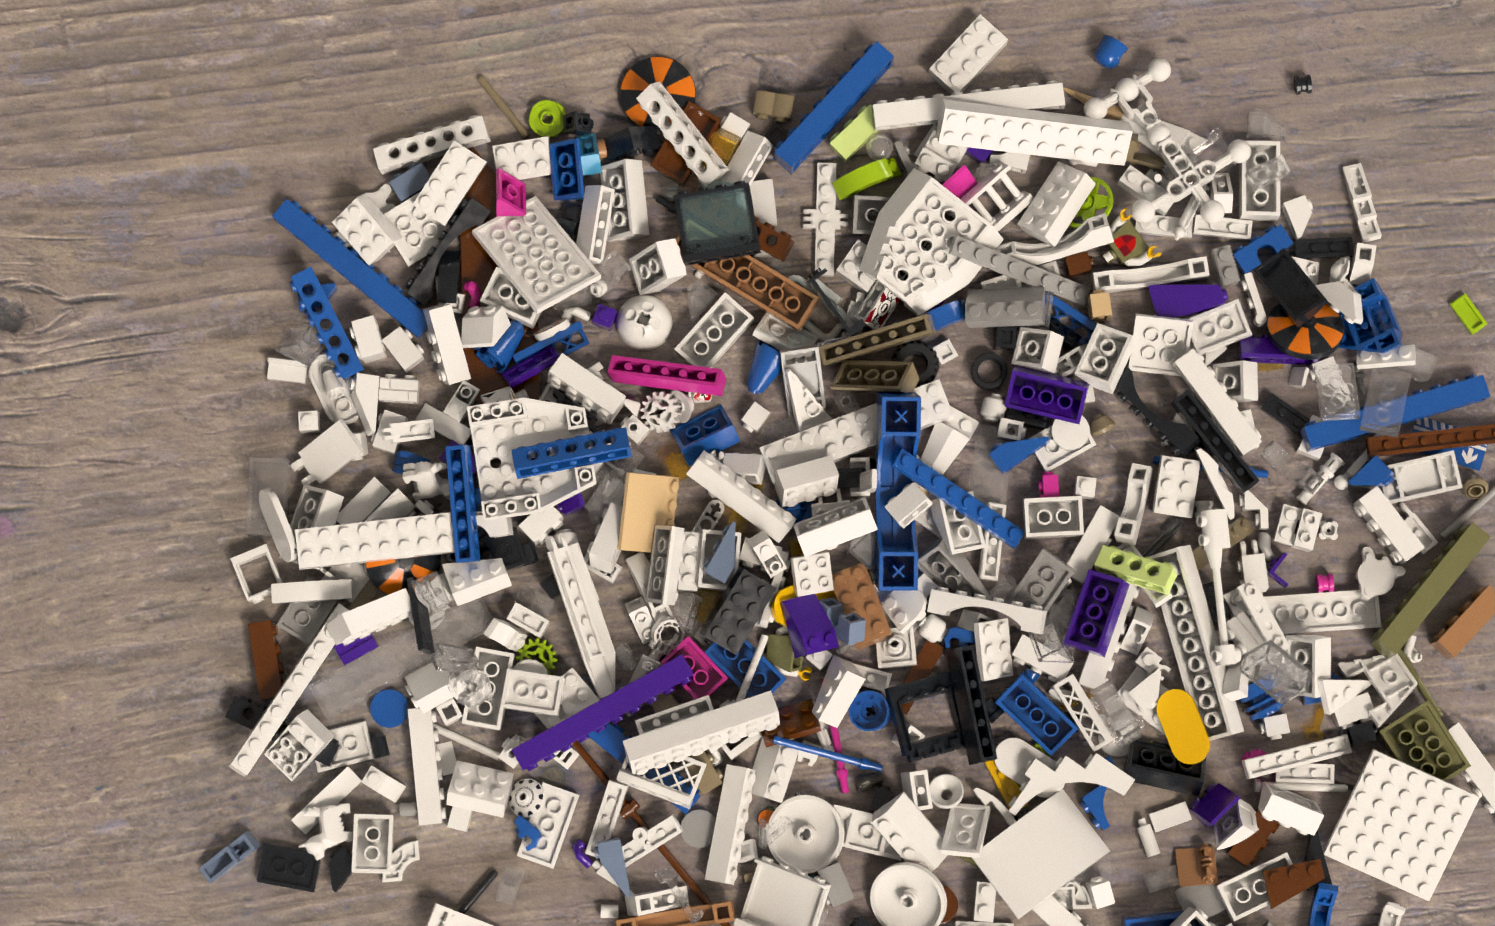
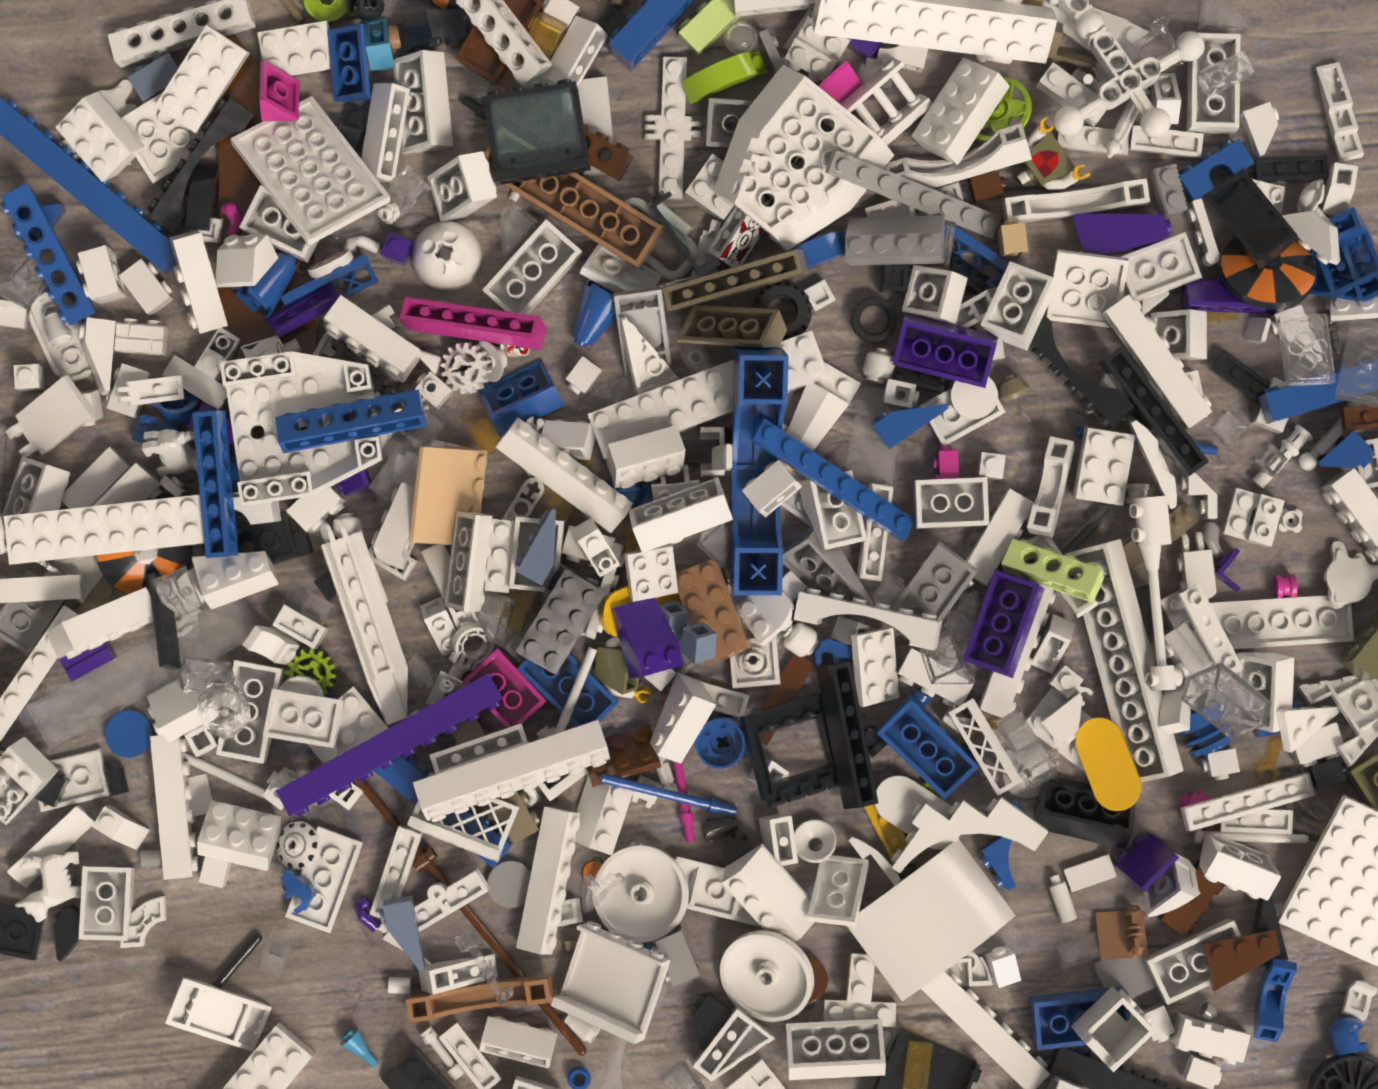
camera: 10 degrees left, 5 degrees up
(429, 447) = (178, 410): none -> blue piece

